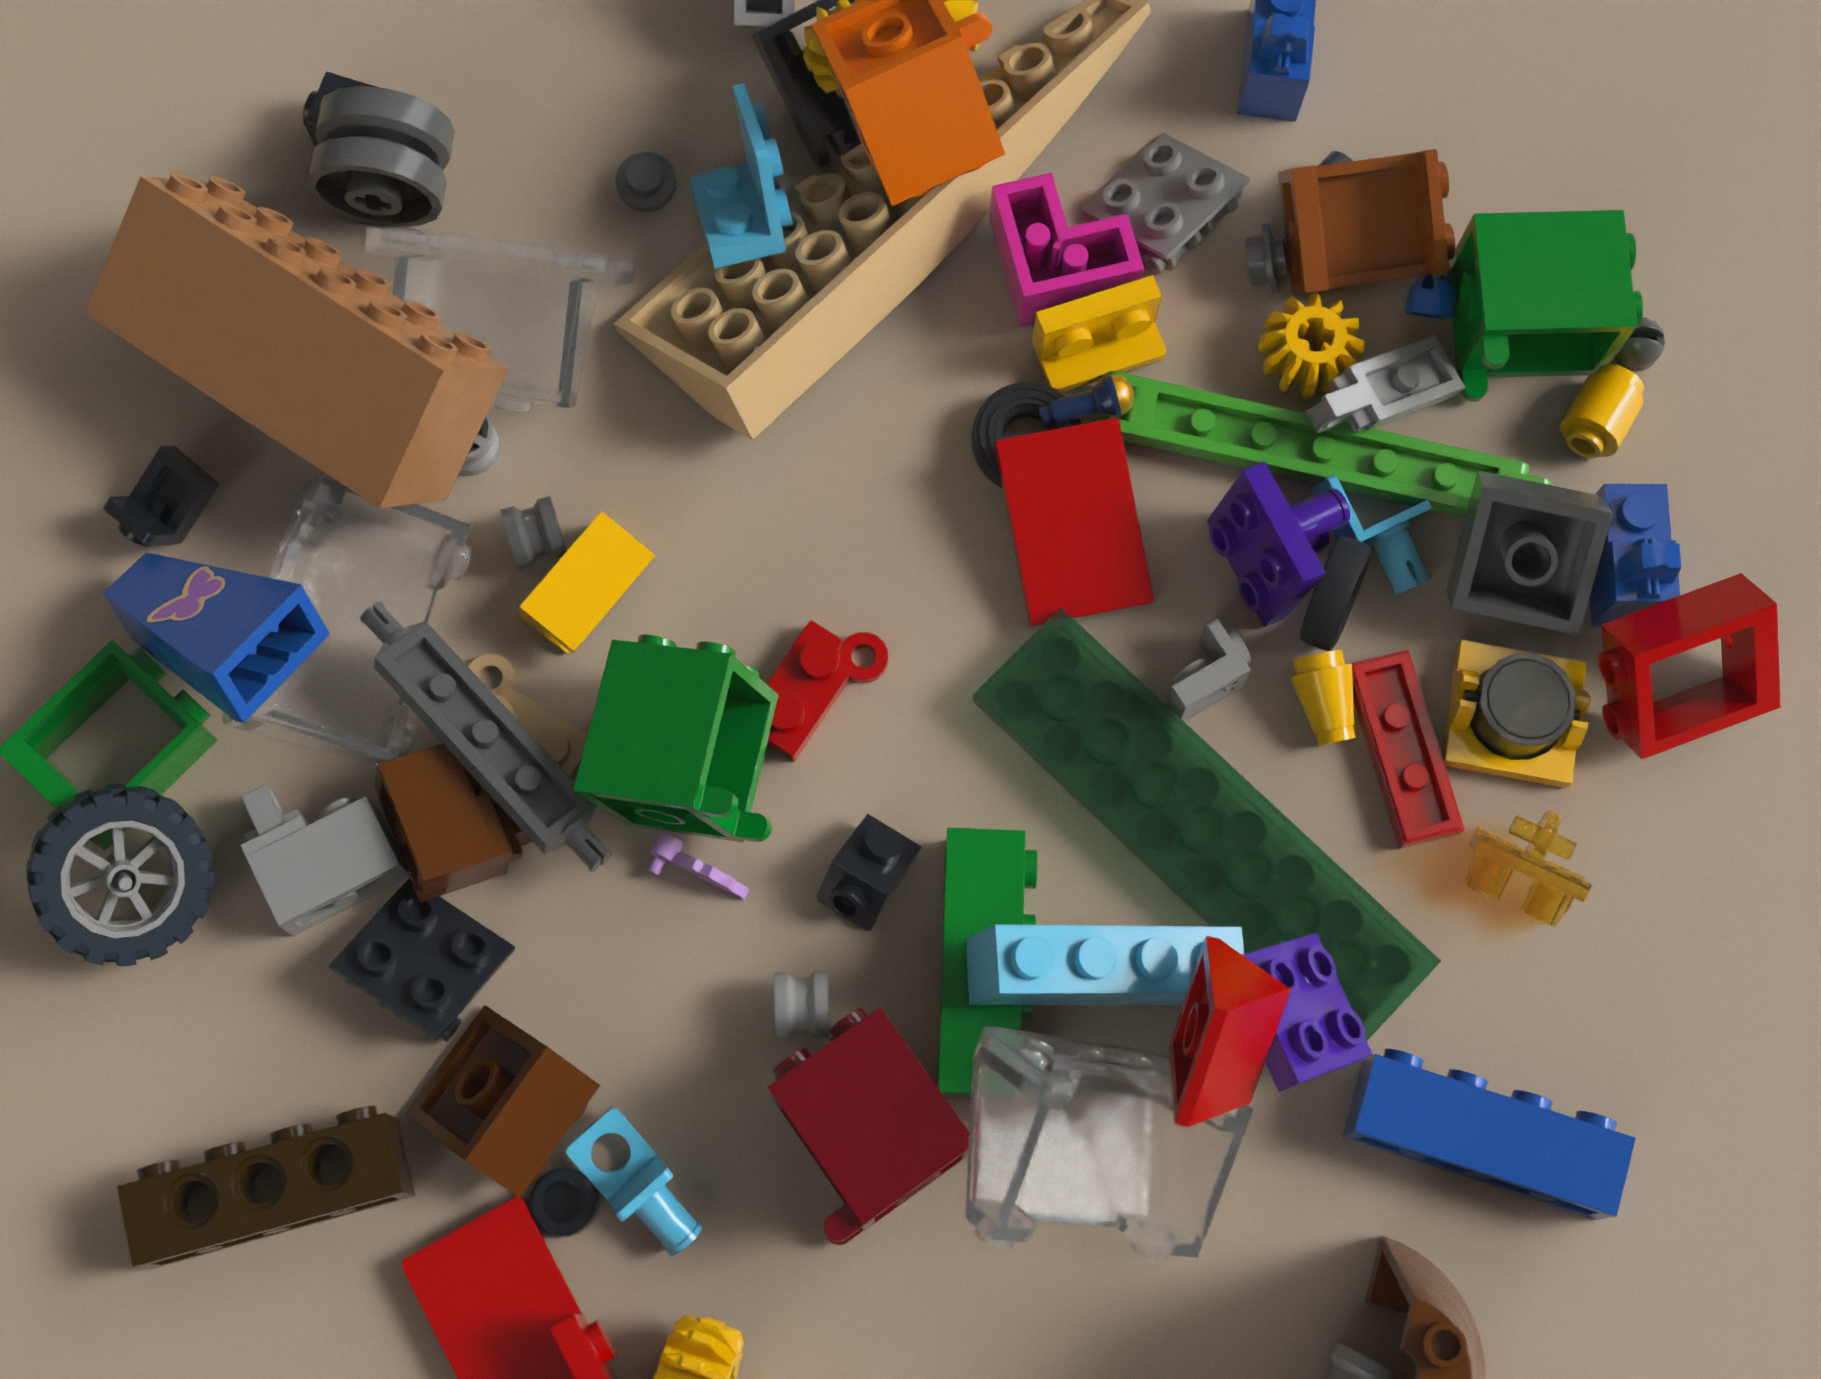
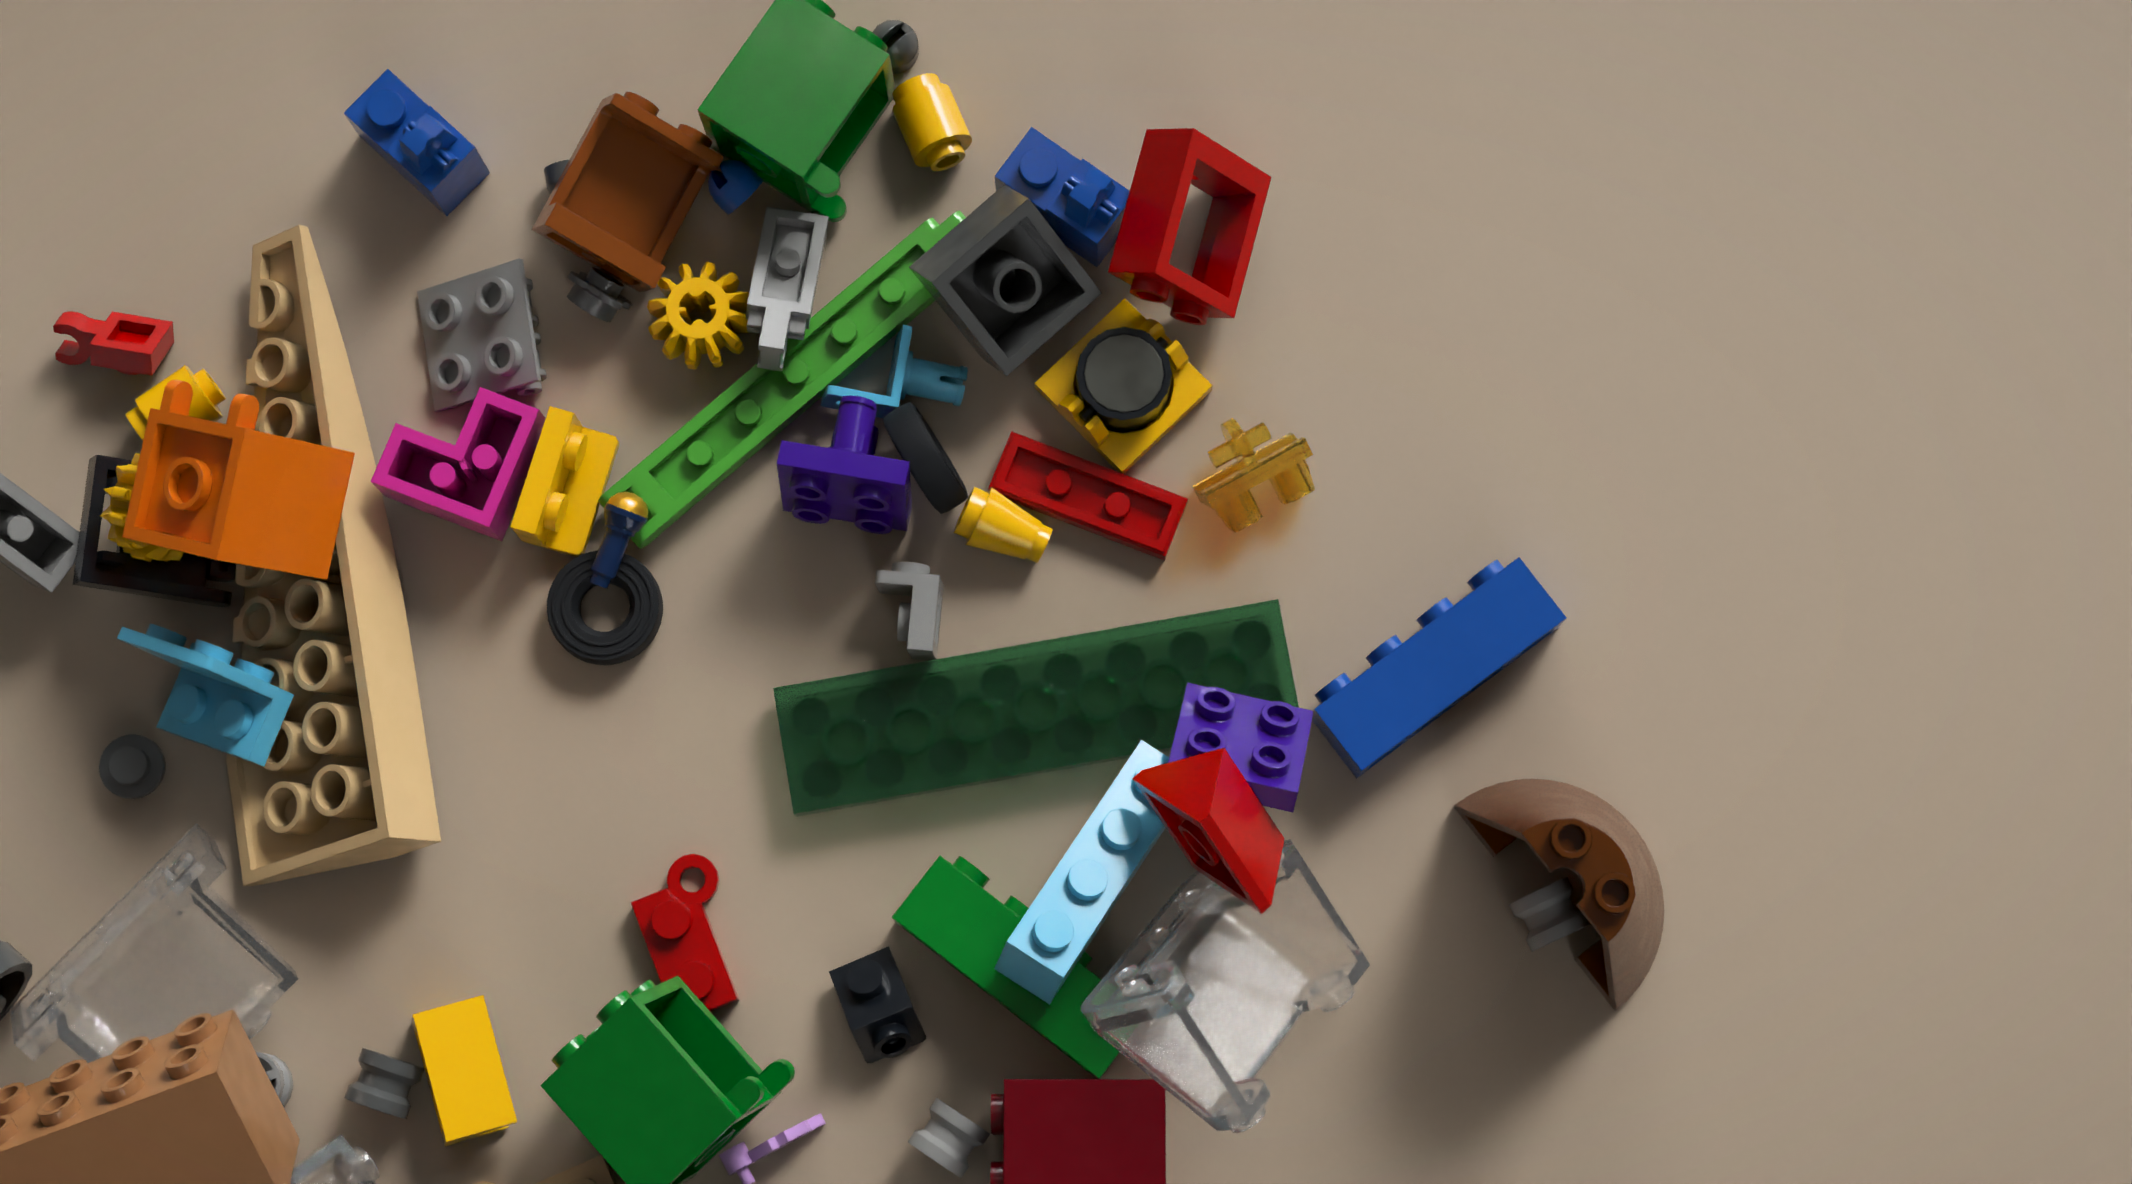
camera: 50 degrees left, 5 degrees up
(1074, 521) = (707, 623): red tile -> none

